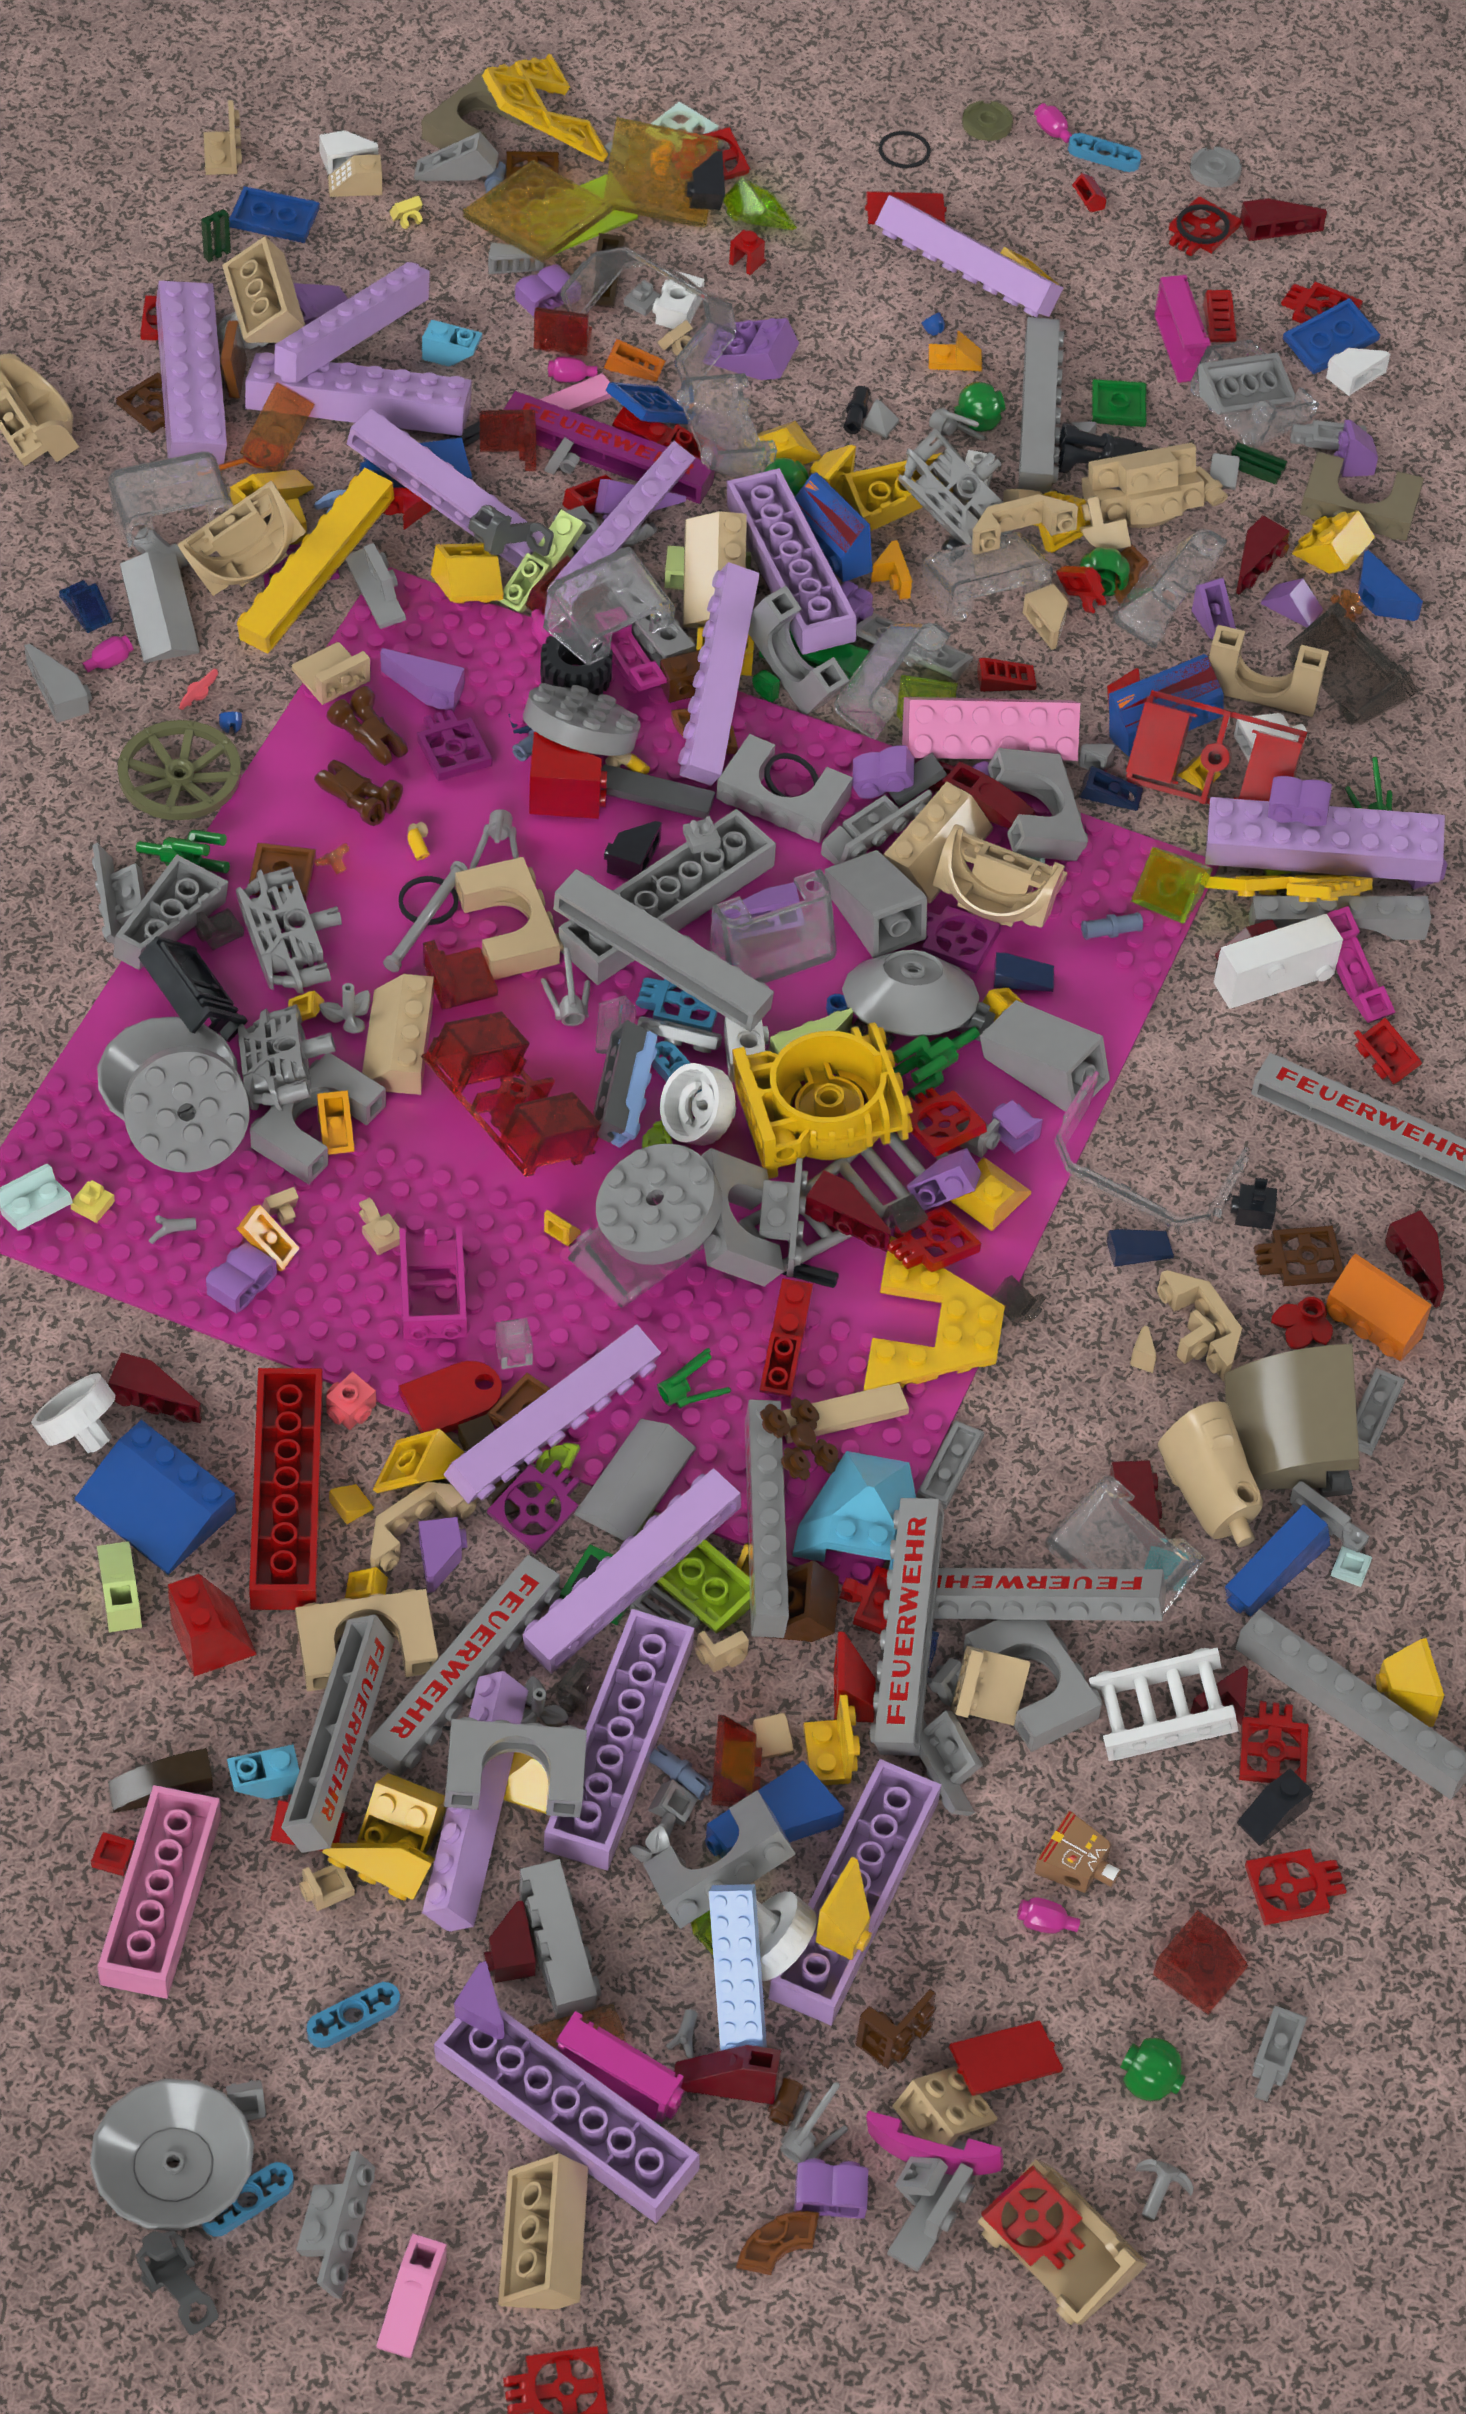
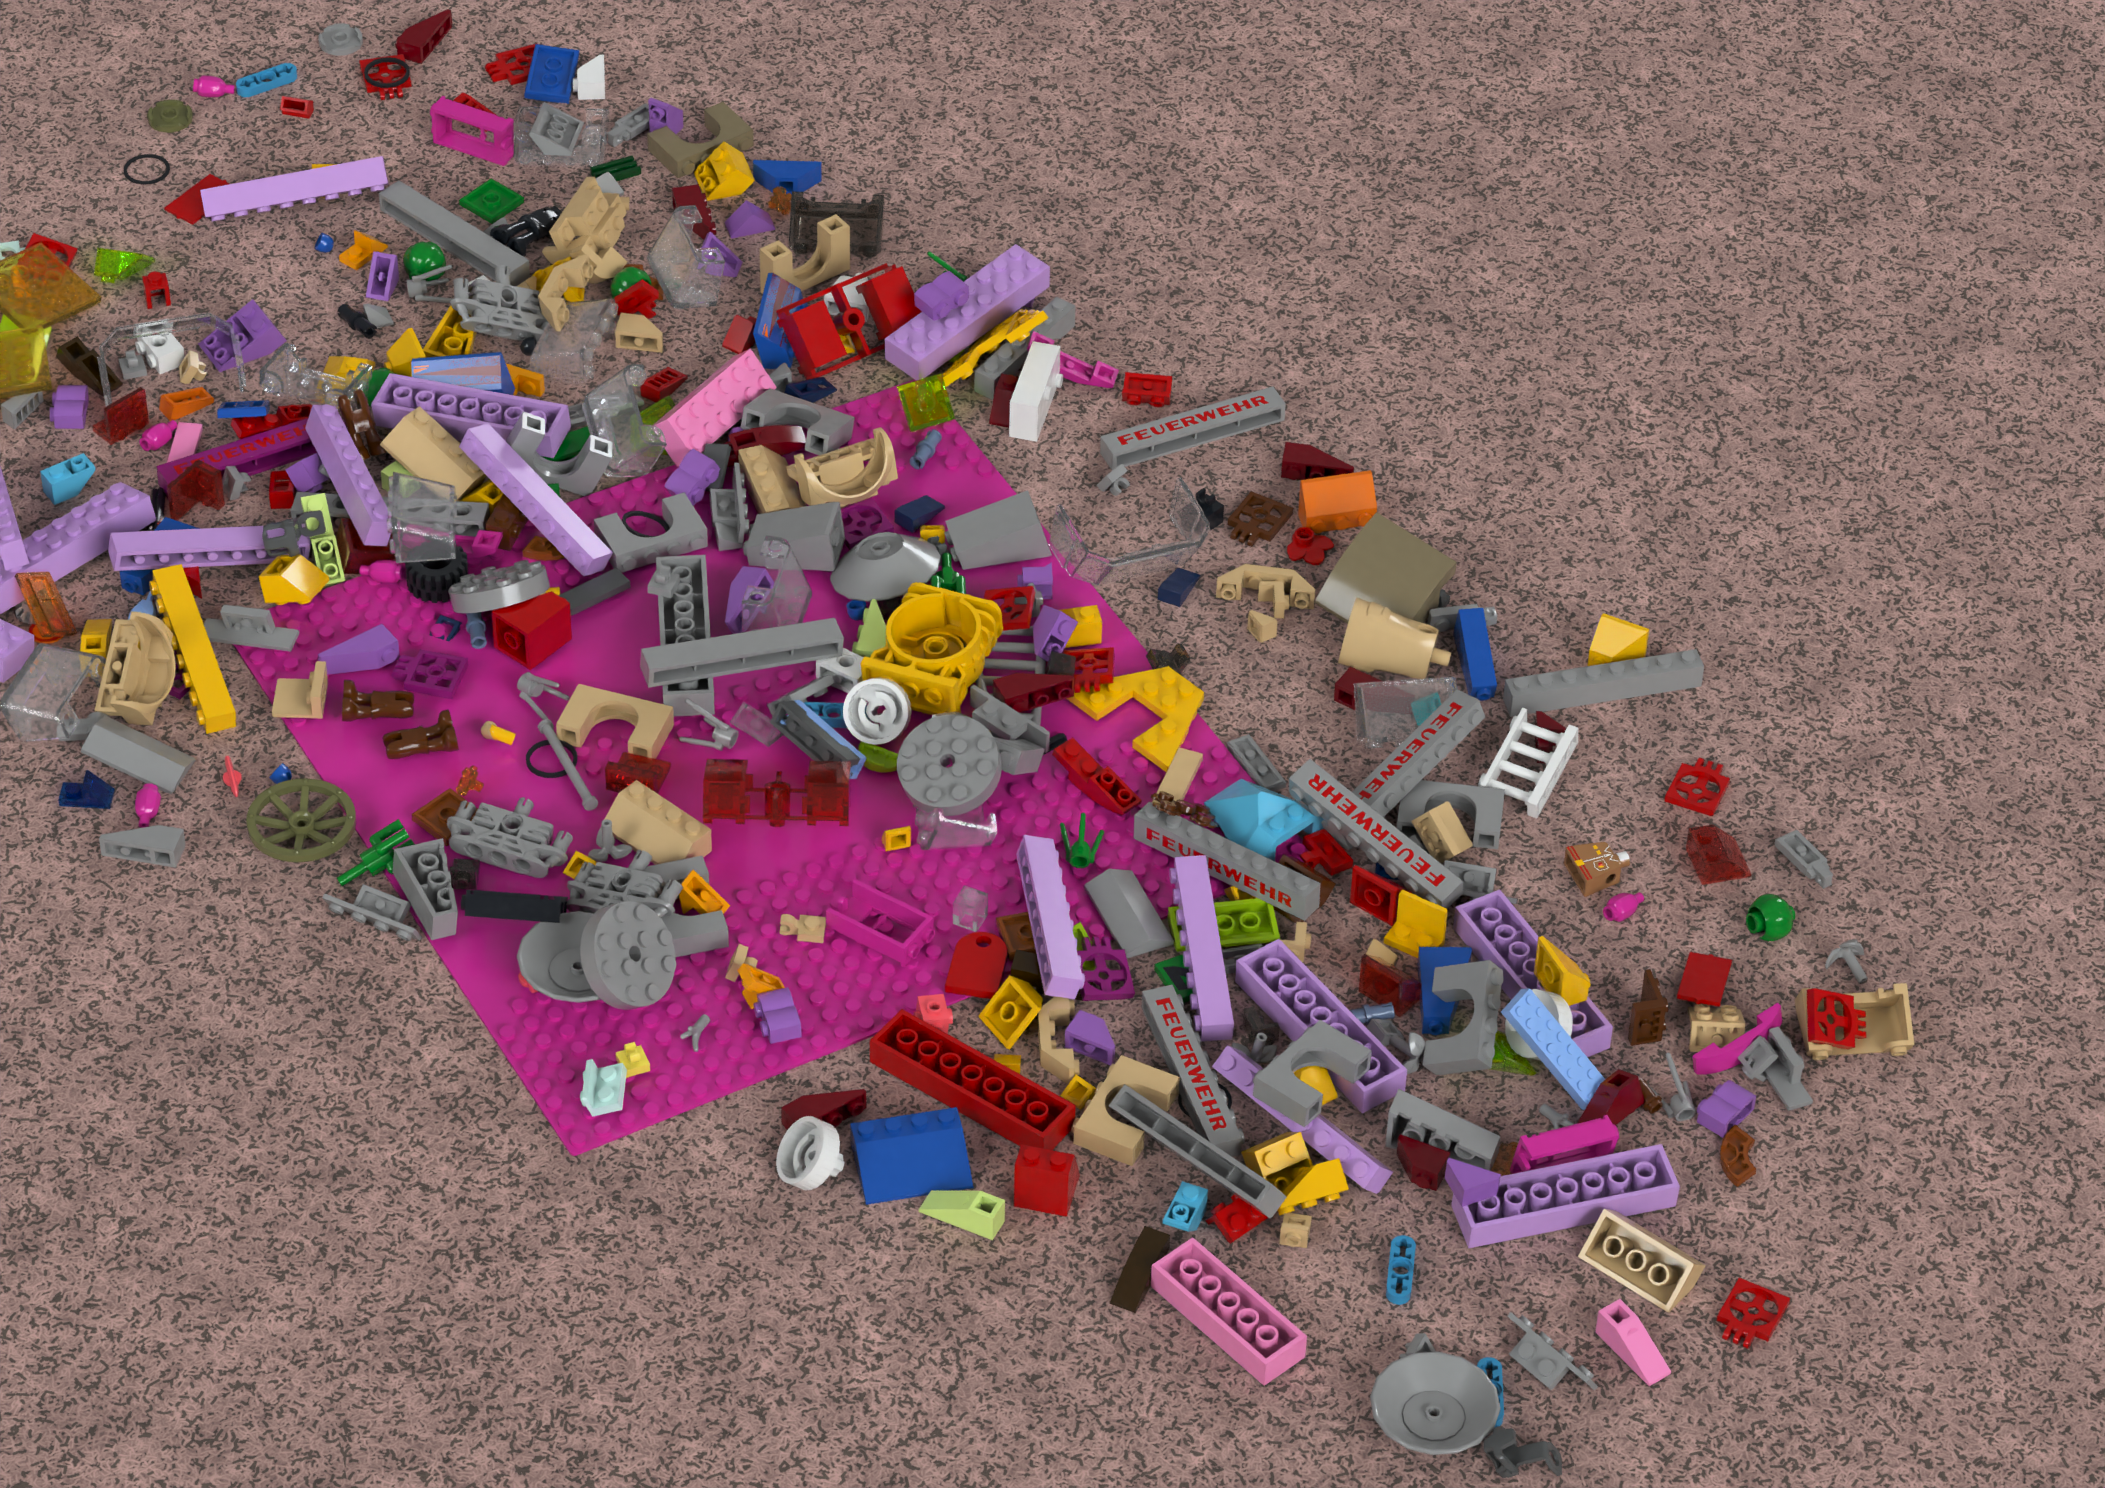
camera: 50 degrees left, 10 degrees down
(113, 1854) = (1172, 1325): red plate -> none
(633, 850) = (626, 633): black slope -> none
(656, 992) = (755, 691): dark azure piece -> none
(702, 489) = (360, 421): none -> reddish brown piece
(707, 184) = (79, 270): black slope -> none
(928, 391) = (382, 276): none -> medium lavender slope
(1232, 1101) = (1114, 479): none -> light grey tile
(1275, 1724) = (1596, 721): red piece -> none
(1276, 1807) = (1642, 758): black slope -> none
(1351, 1566) = (1502, 631): light aqua tile -> none

